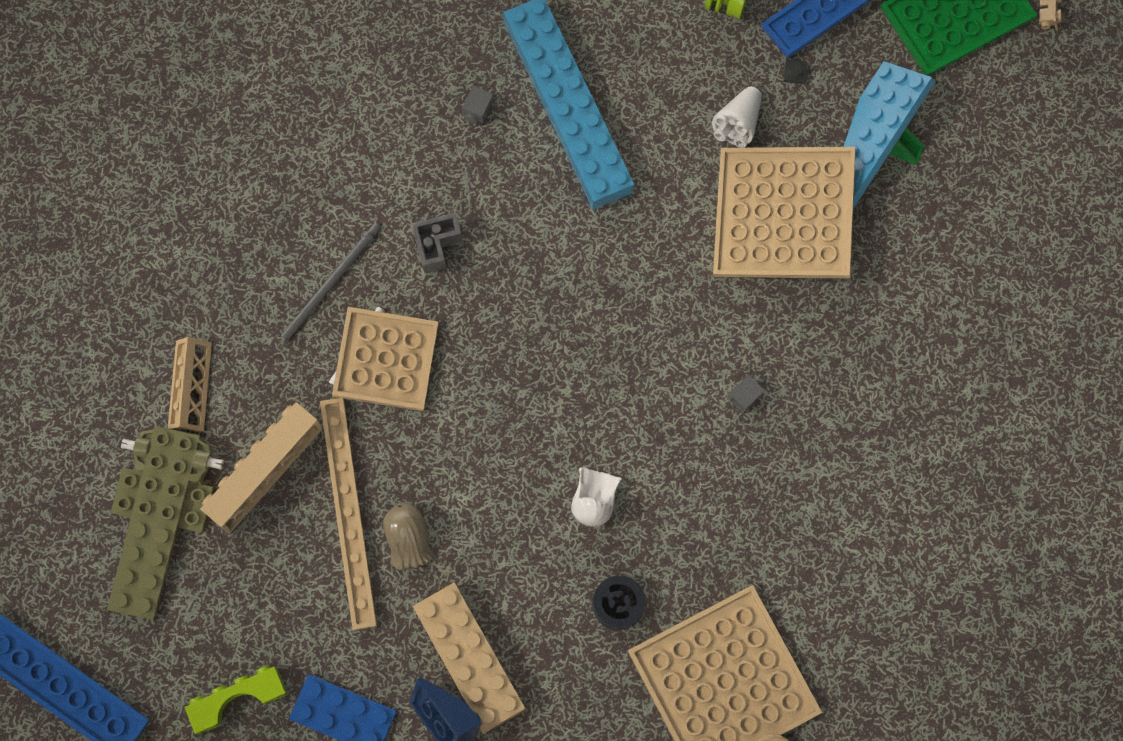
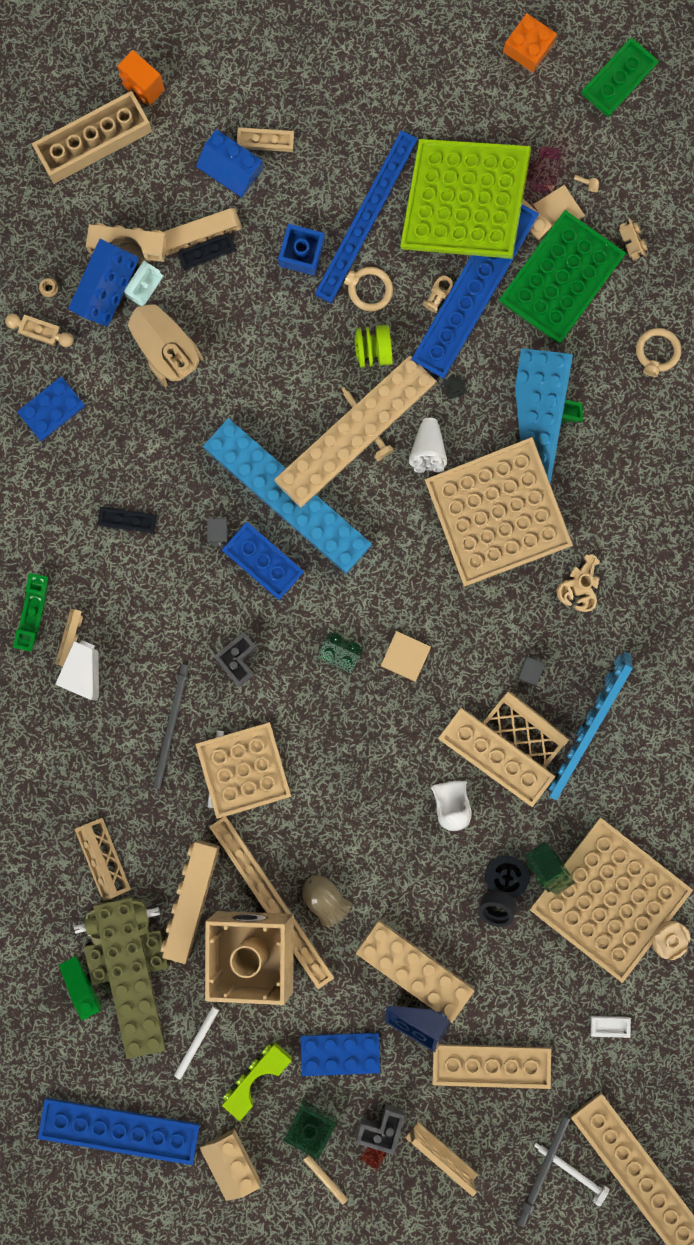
camera: 20 degrees left, 10 degrees up
(95, 511) = (80, 989): none -> green slope
(191, 629) = (196, 1043): none -> white bar
(246, 101) = (32, 612): none -> green slope
(265, 178) = (81, 671): none -> white slope
(270, 144) = (69, 636): none -> tan plate
(294, 552) = (249, 957): none -> tan brick
(389, 55) = (127, 520): none -> black tile
(511, 156) = (263, 561): none -> blue plate
(547, 284) = (340, 652): none -> clear green bracket
(581, 638) = (501, 900): none -> black tyre
(616, 320) = (405, 656): none -> tan tile
(666, 468) = (496, 757): none -> tan plate
(668, 67) = (355, 432): none -> tan plate
(669, 610) = (549, 869): none -> clear green brick
(689, 102) = (384, 450): none -> tan piece
(727, 447) = (535, 719): none -> tan fence
(774, 484) = (613, 684): none -> dark azure wing
(840, 329) = (581, 585): none -> tan animal
(1016, 140) = (652, 367): none -> tan piece

